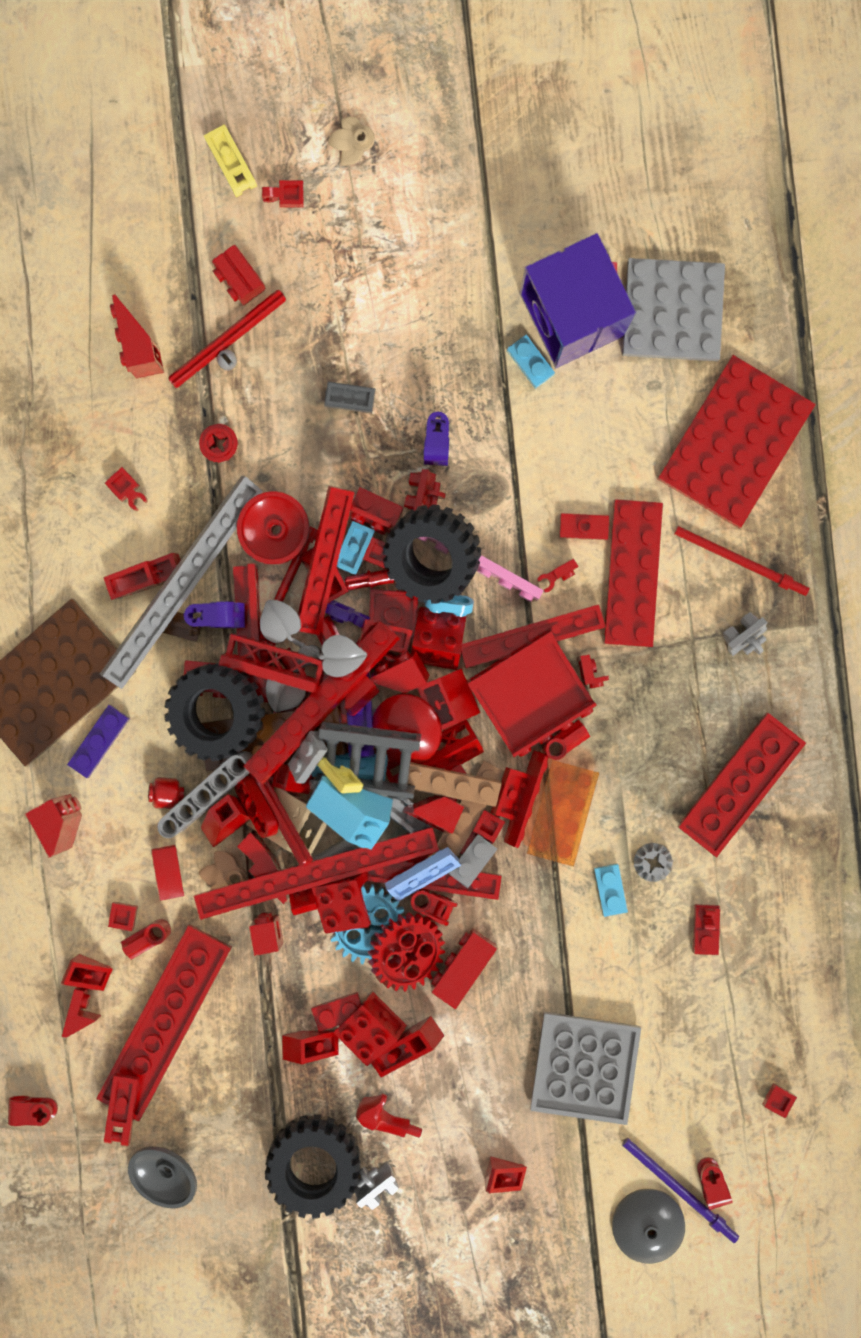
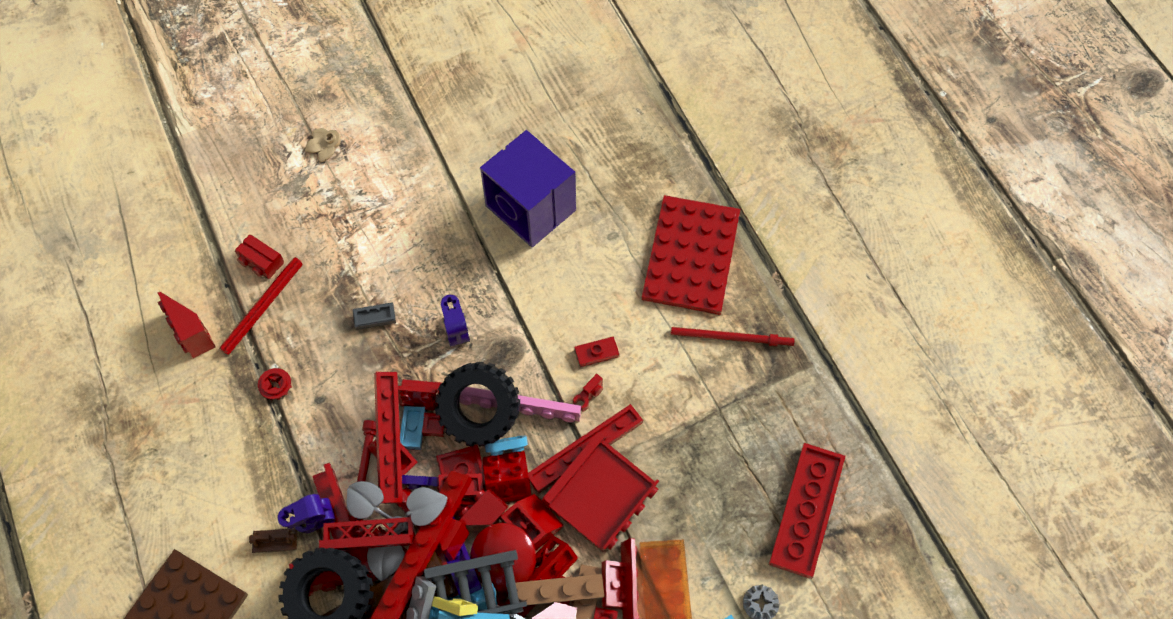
camera: 20 degrees left, 25 degrees down
(124, 487) = (202, 441): red plate -> none
(141, 576) = (236, 508): red slope -> none
(179, 584) = (267, 503): light grey plate -> none
(223, 364) = (263, 324): light grey hinge -> none
(229, 159) = (232, 182): light yellow plate -> none
(257, 524) = (332, 421): red dish -> none
(289, 193) = (283, 190): red plate -> none
(368, 579) = (433, 448): red axle -> none
(427, 492) = (455, 359): red hips -> none
(530, 361) = (510, 248): medium azure plate -> none
(567, 740) = (645, 522): red piece -> none
(587, 669) = (642, 460): red bracket -> none
(633, 573) = (650, 375): red plate -> none
(675, 309) = (609, 181): light grey plate -> none
(754, 628) = (763, 389): light grey hips -> none

